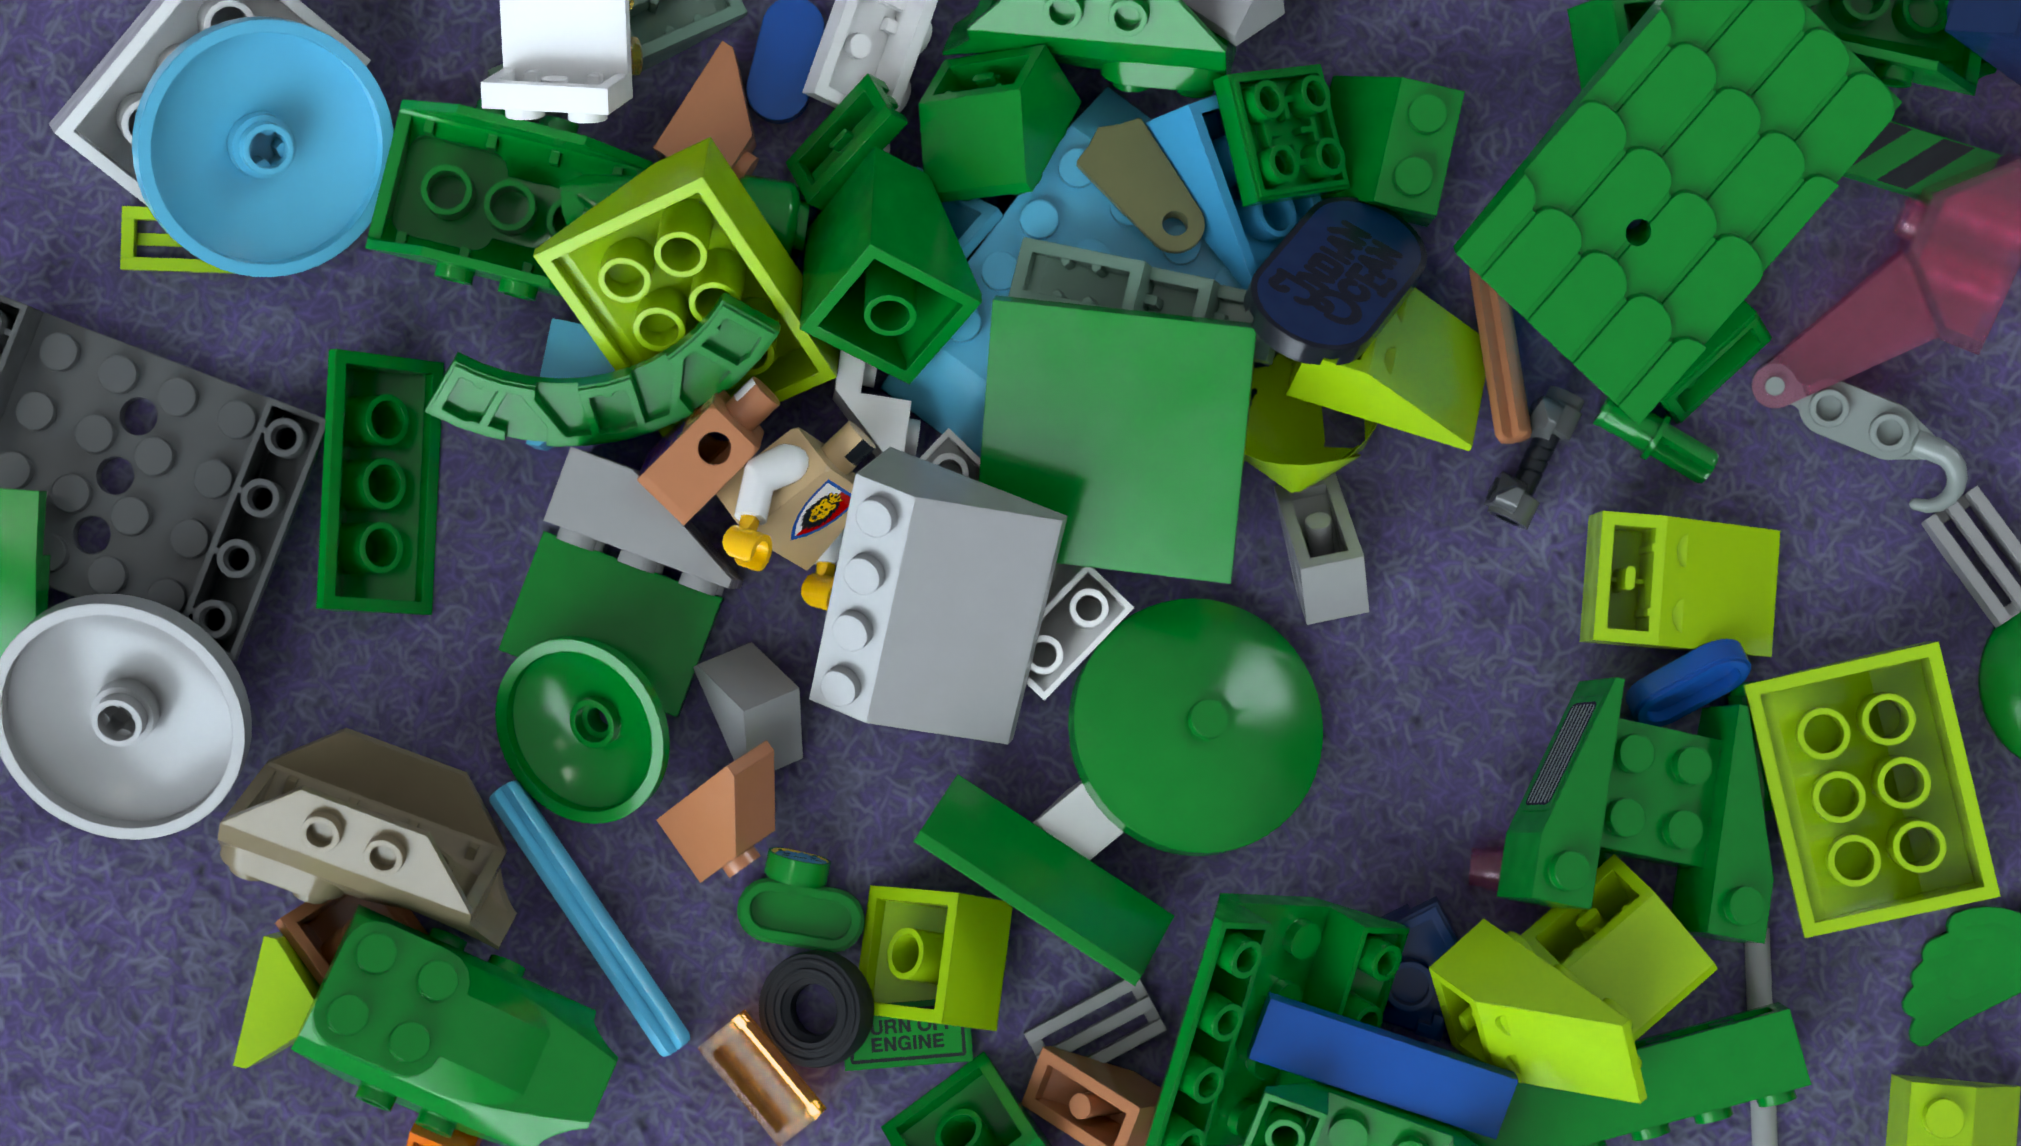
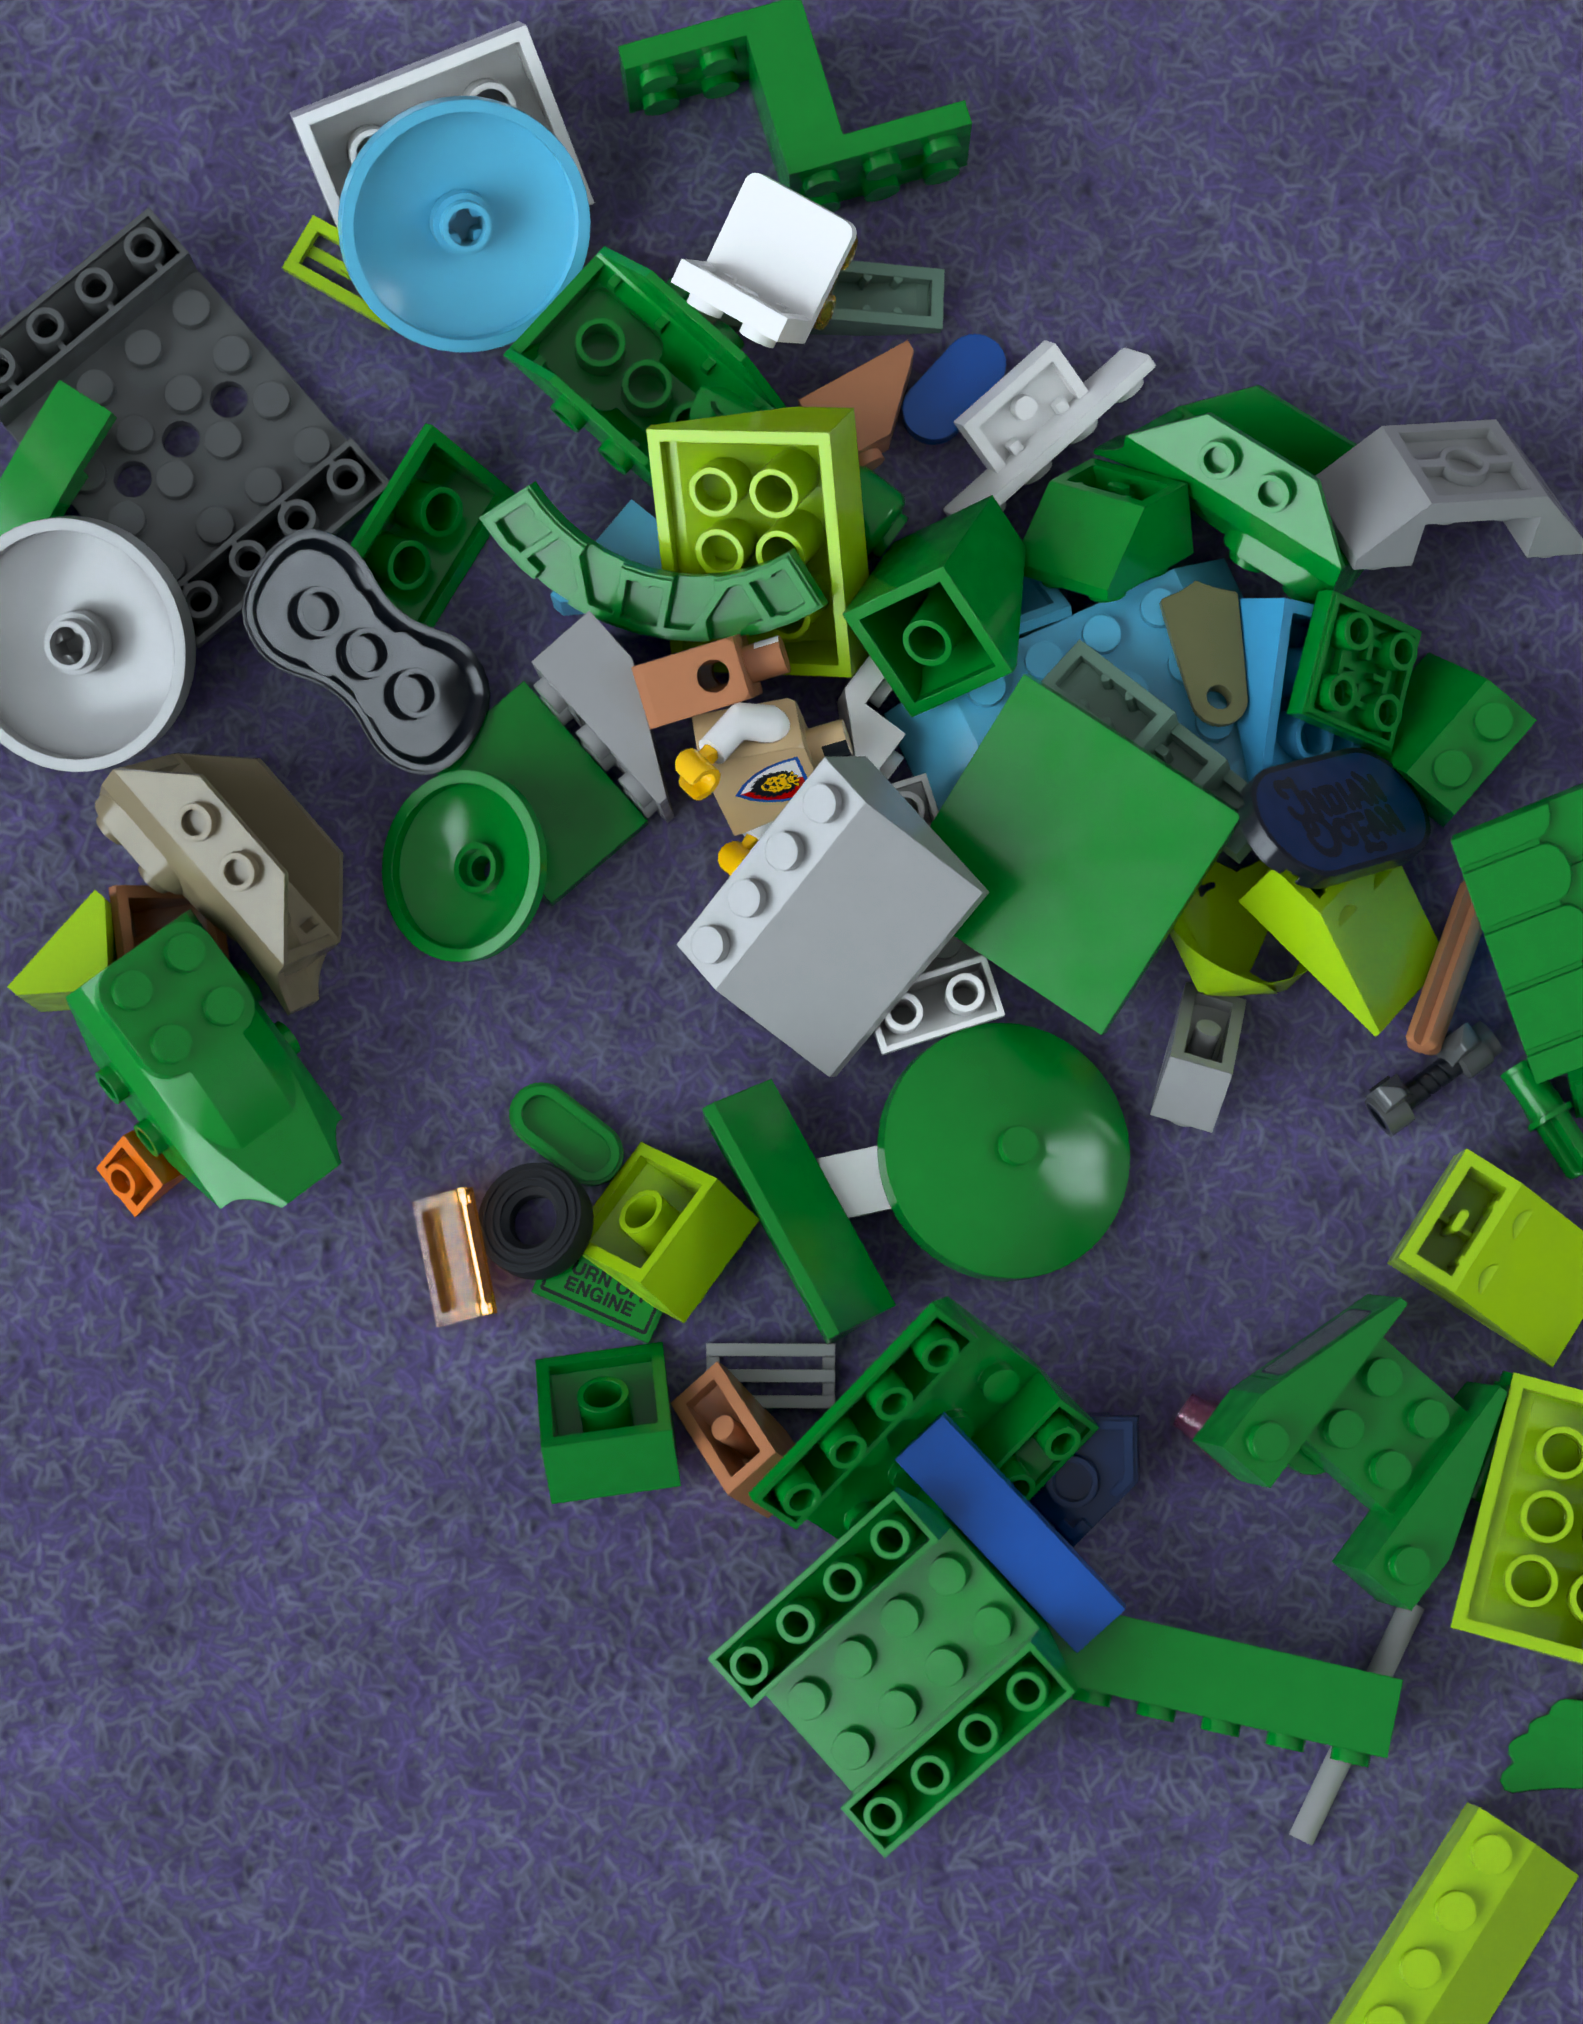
camera: 30 degrees right, 5 degrees down
(340, 581) = (328, 621): none -> plate
(590, 918) = (380, 1038): medium azure axle -> none
(726, 816) = (549, 1006): nougat slope -> none
(753, 703) = (622, 933): light grey slope -> none
(797, 868) = (585, 1089): green tile -> none
(844, 140) = (961, 481): green tile -> none
(1534, 1018) = (1168, 1562): lime slope -> none
(1624, 947) = (1273, 1551): lime slope -> none
(1688, 683) = (1466, 1346): blue tile -> none

